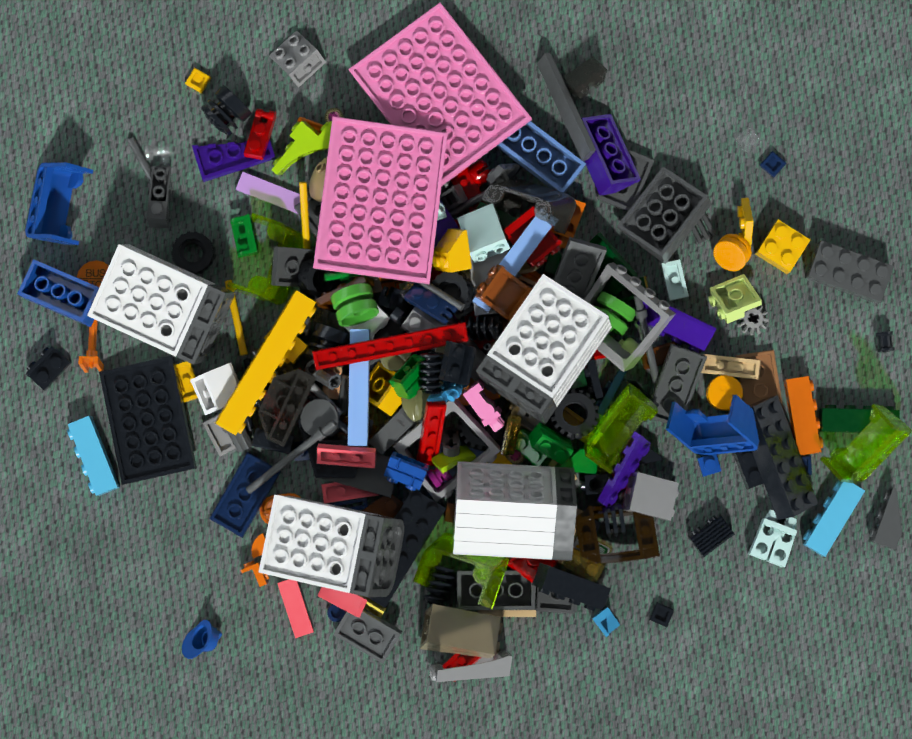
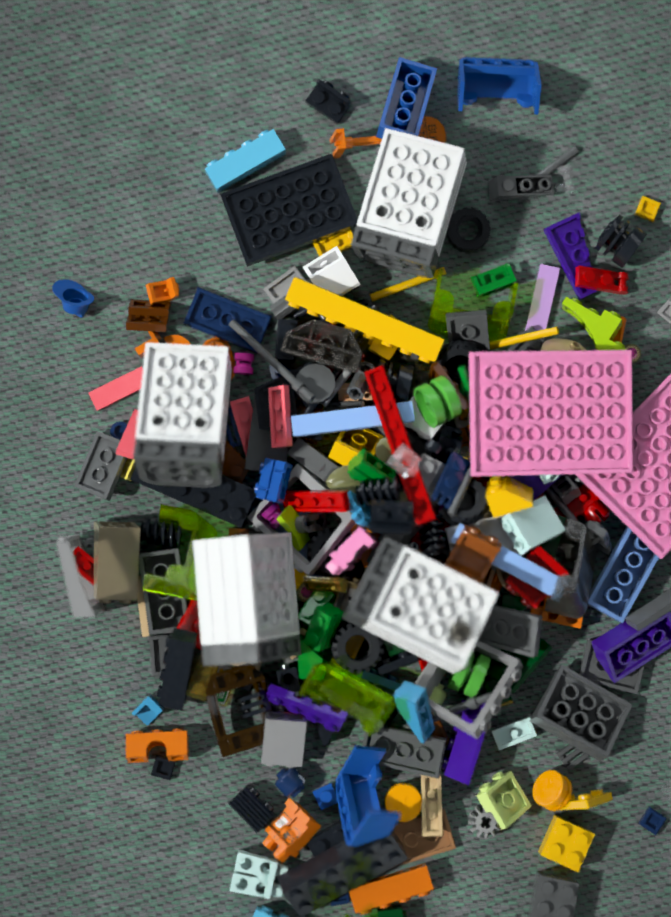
camera: 80 degrees right, 0 degrees up
(207, 552) = (162, 291): none -> orange bracket
(229, 569) = (148, 316): none -> reddish brown slope
(294, 484) = (243, 363): none -> dark pink wheel
(401, 341) = (404, 454): none -> clear brick
(574, 314) = (459, 632): none -> clear smoke tile
(636, 632) = (139, 745): none -> orange arch
(639, 368) = (415, 709): none -> dark azure slope
(691, 496) = (290, 782): none -> dark blue head
(737, 501) = (290, 831): none -> orange hips

